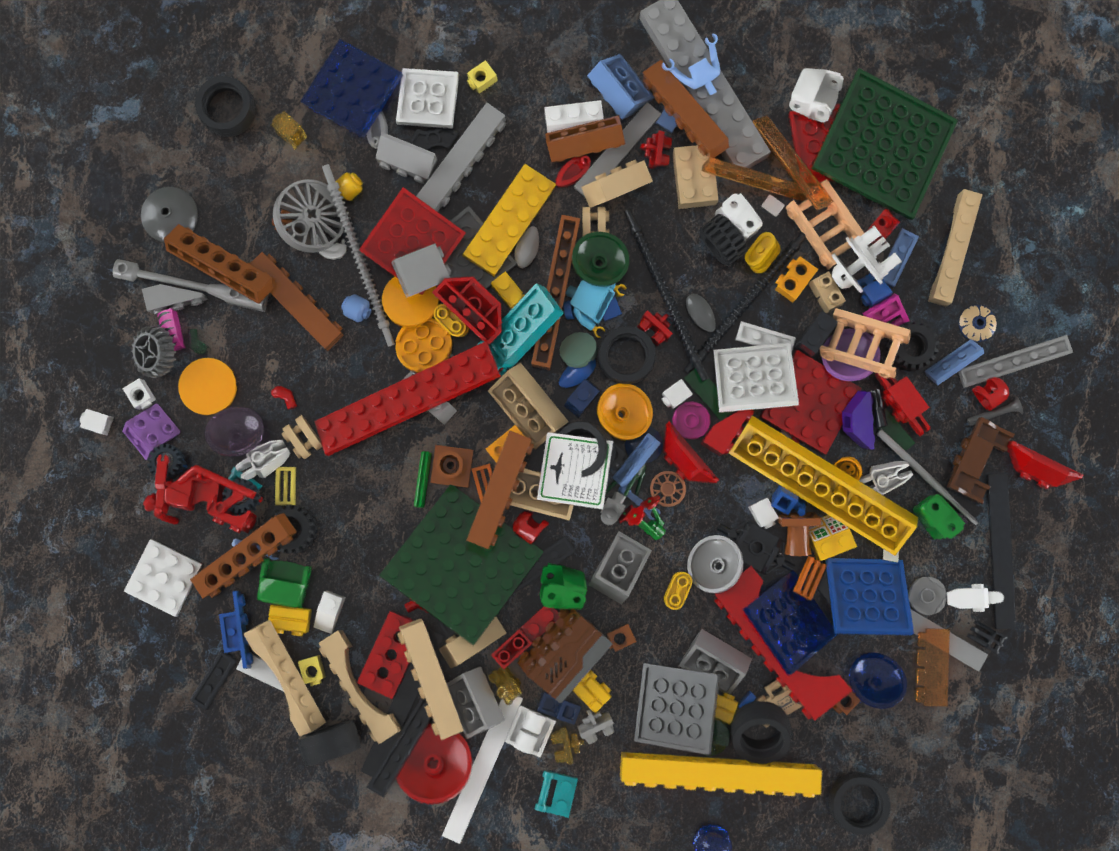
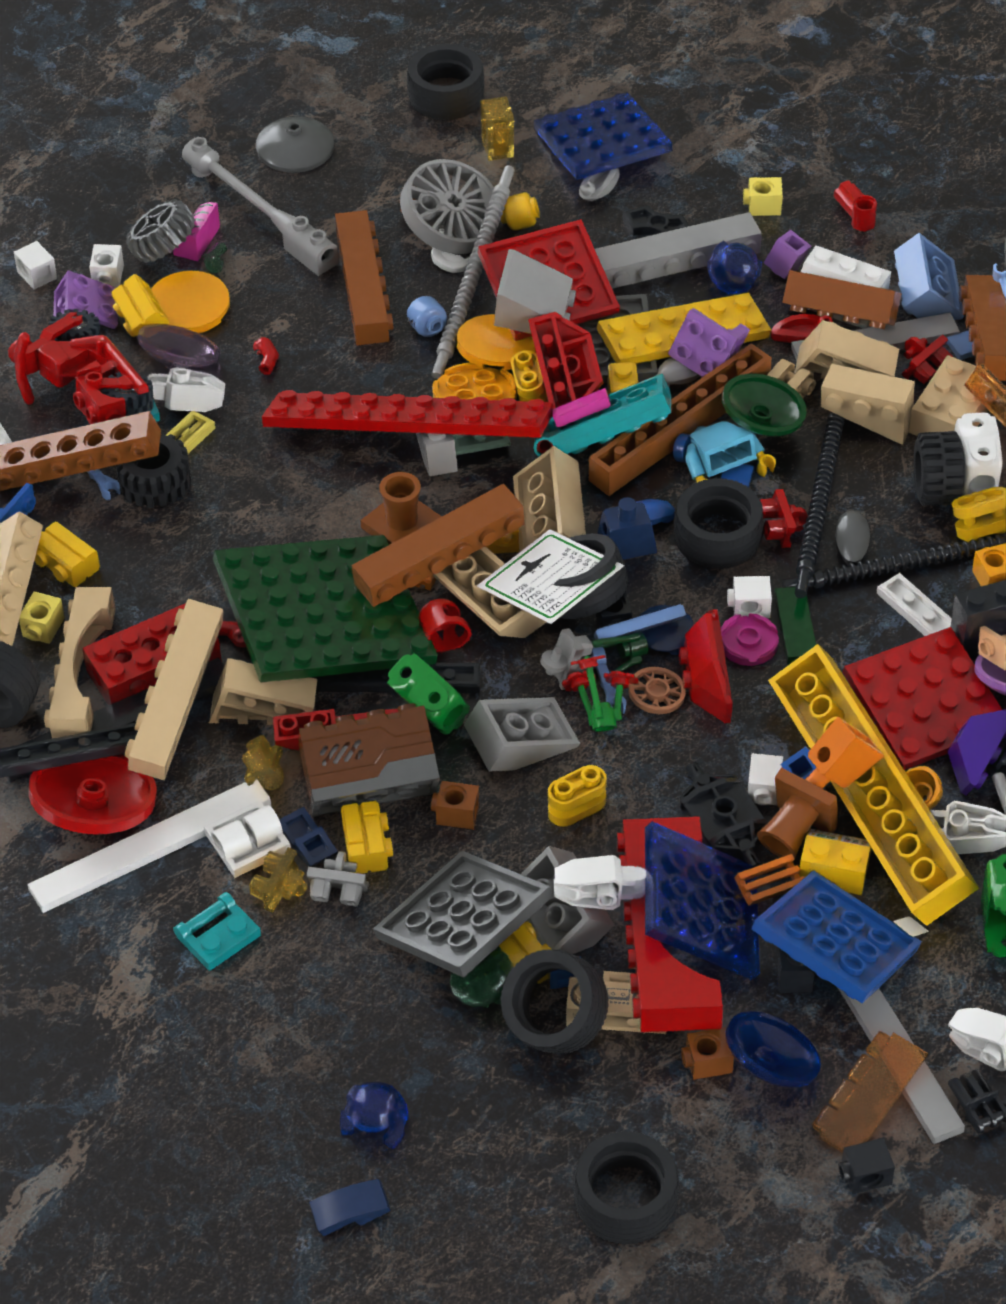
camera: 35 degrees right, 35 degrees down
(164, 297) = (233, 205): light grey slope -> none
(187, 417) = (137, 305): none -> yellow brick
(219, 263) = (309, 190): dark orange brick -> none
(283, 583) = (92, 516): green piece -> none
(291, 434) = (239, 389): tan brick -> none
(328, 611) = (121, 569): white slope -> none
(406, 158) = (608, 209): light grey slope -> none
(422, 480) = (352, 515): green axle -> none
(427, 98) = (683, 182): white plate -> none
(474, 702) = (205, 759): light grey slope -> none
(506, 153) = (734, 267): none -> clear blue helmet
(506, 336) = (581, 408): none -> dark pink tile
(529, 121) = (787, 254): none -> medium lavender brick
(538, 47) = (859, 206): none -> red piece
(539, 235) = (705, 344): none -> medium lavender bracket
(578, 349) = (658, 486): sand green tile -> none
(632, 404) = (667, 570): light orange dish -> none
(652, 212) = (870, 400): none -> tan wedge
(704, 563) = (651, 790): light grey dish -> none
(720, 435) = (777, 646): red slope -> none
(720, 773) = (460, 1024): yellow brick -> none
(741, 655) = (598, 882): none -> white hinge
(755, 377) = (866, 615): white plate -> none
(810, 493) = (842, 755): none -> orange torso
(927, 595) = (926, 1008): light grey tile -> none
(958, 710) = (867, 1166): none -> black brick

